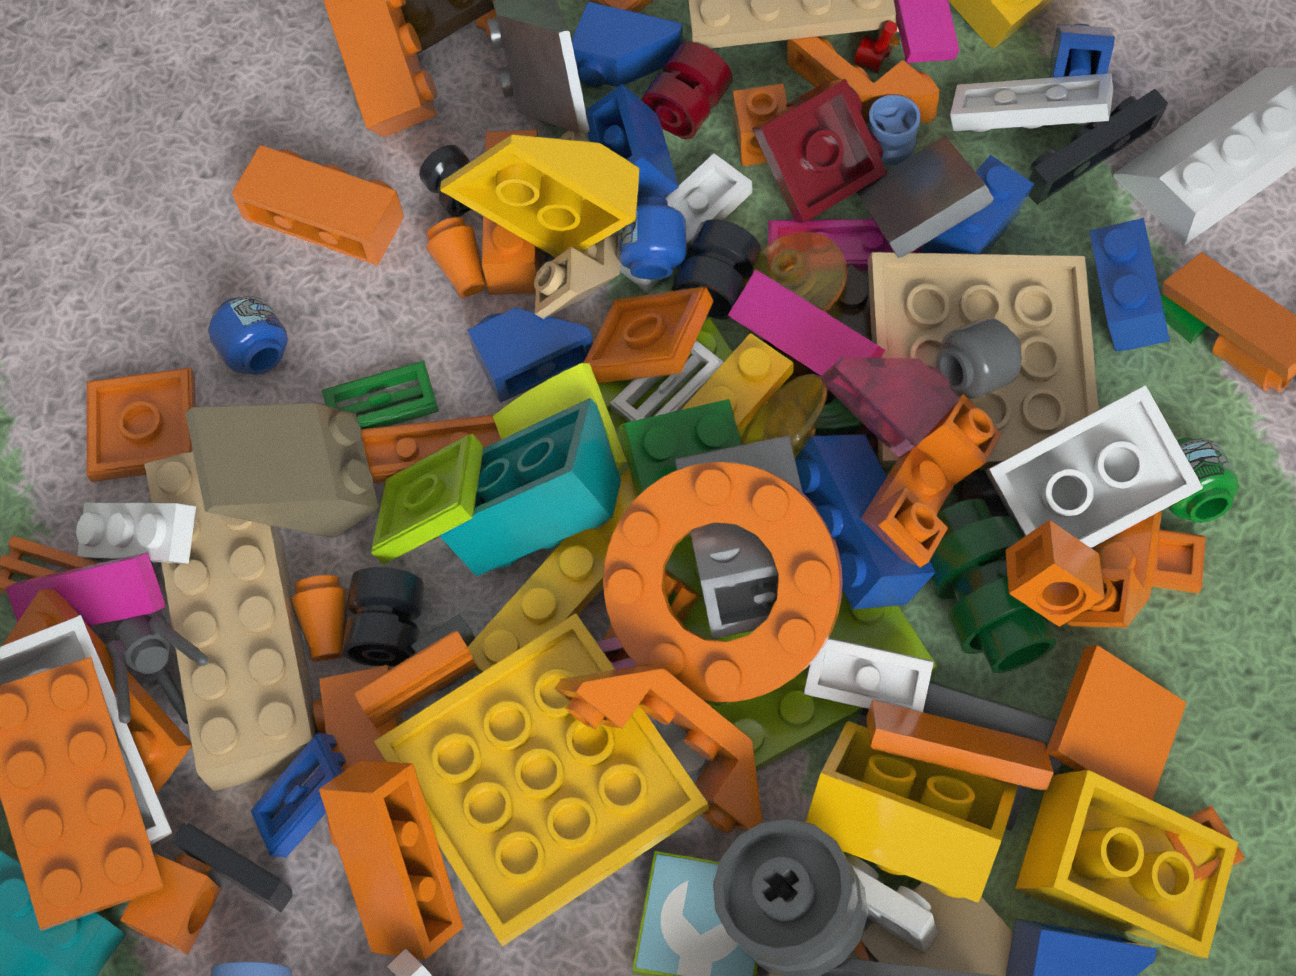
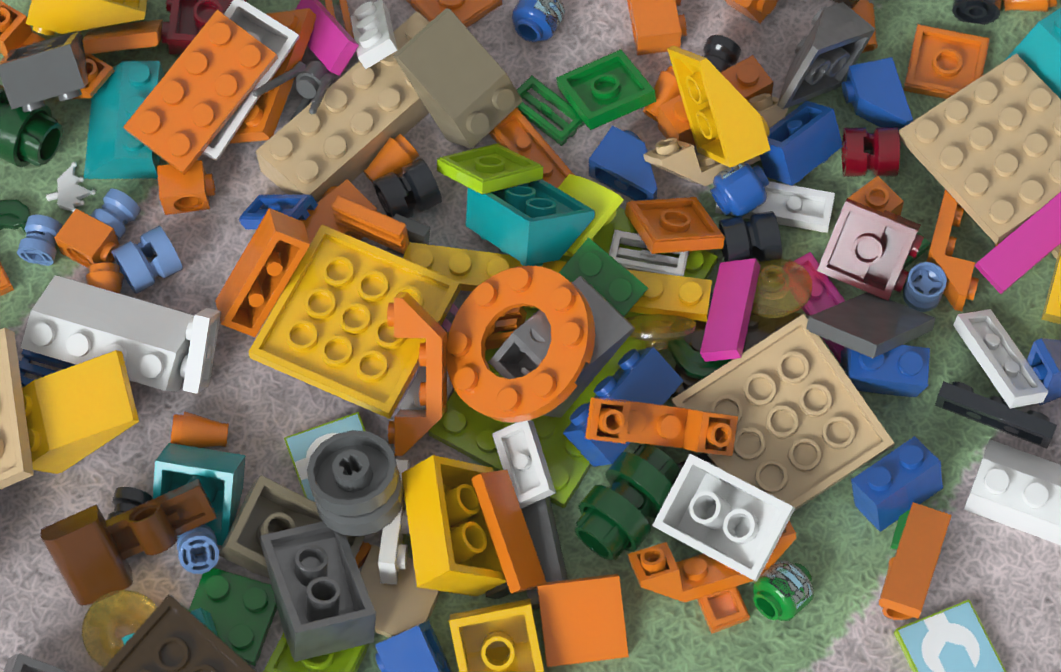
camera: 55 degrees right, 0 degrees up
(233, 866) = (221, 204): black tile -> none
(407, 316) = (606, 89): none -> green plate
(872, 51) = (980, 244): red hand -> none
(892, 397) = (706, 377): clear pink slope -> none
(980, 357) = (768, 412): dark grey head -> none
(1054, 573) = (640, 522): orange brick -> none

